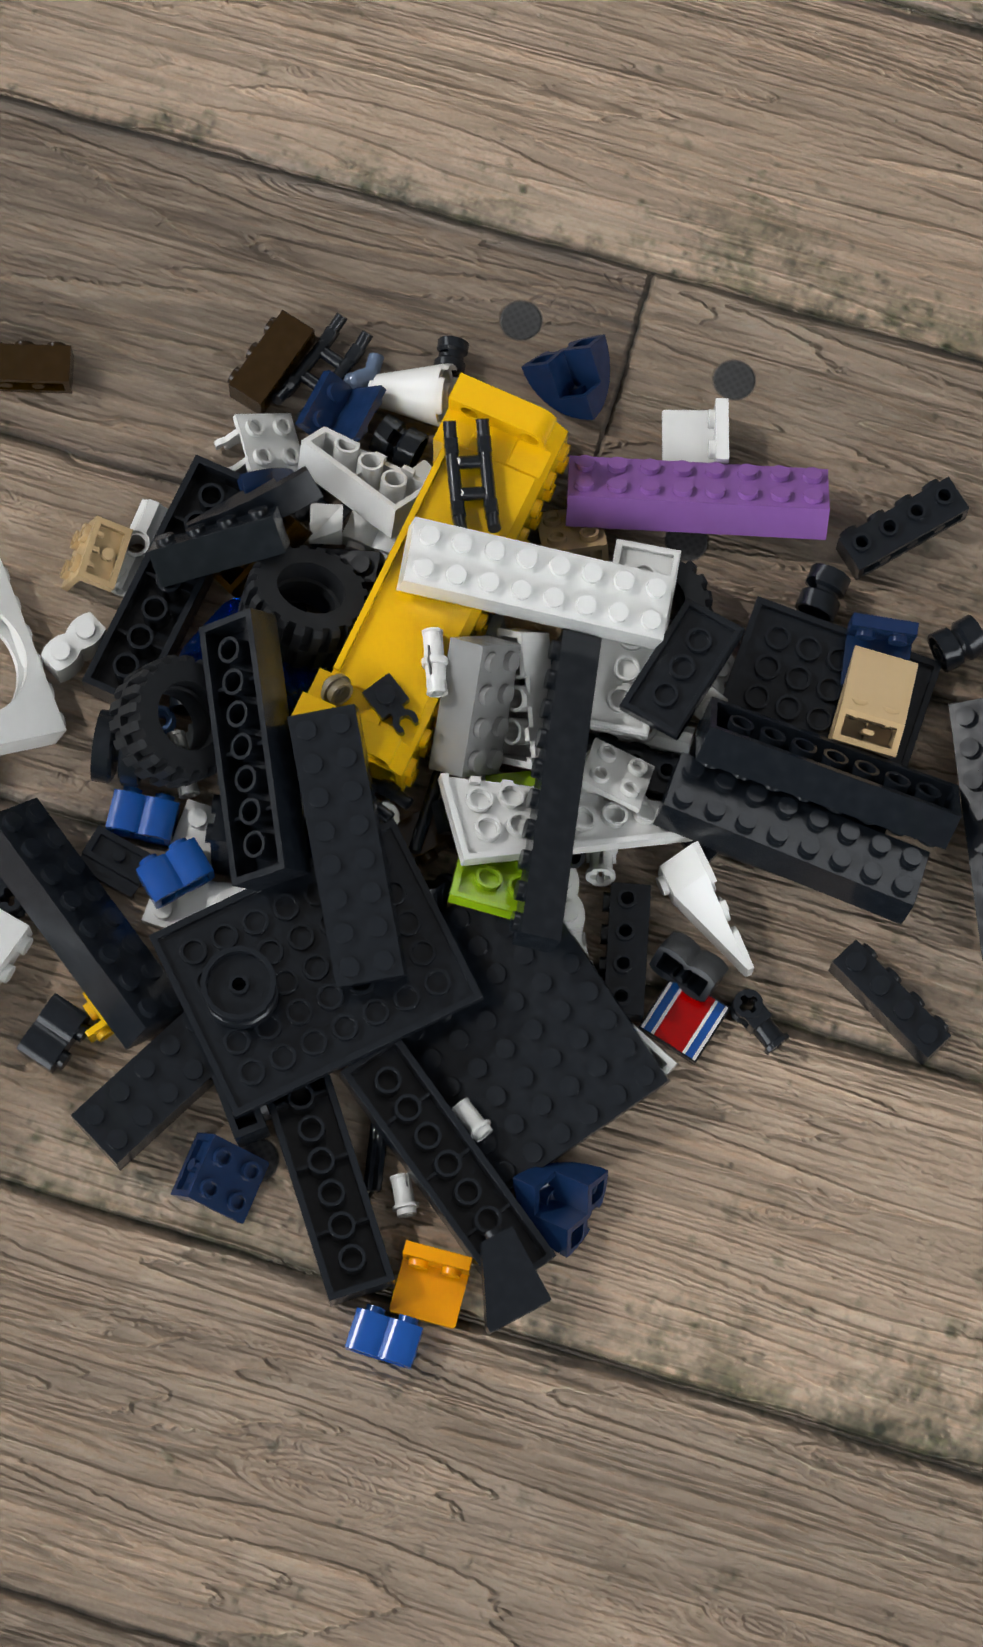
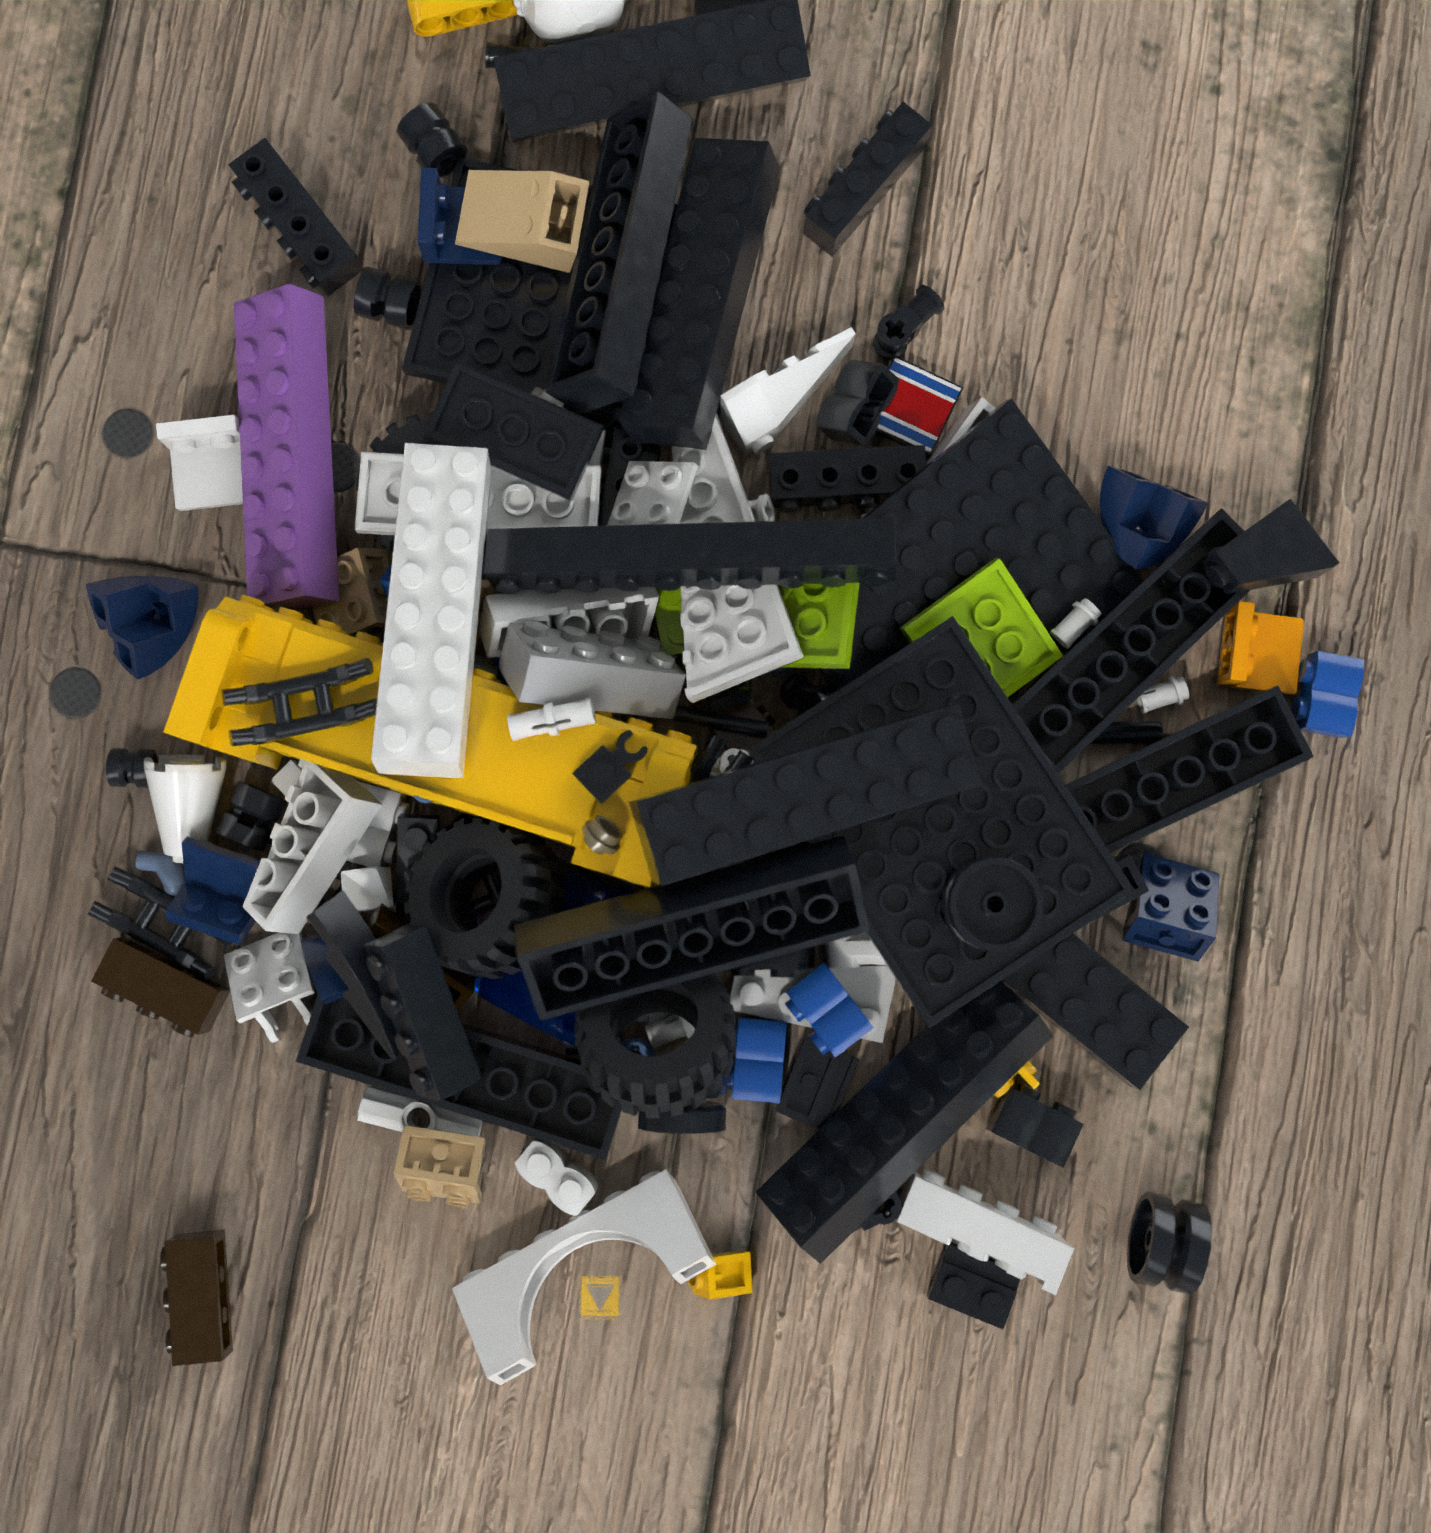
camera: 95 degrees left, 10 degrees up
(471, 1043) = (997, 625): none -> lime plate

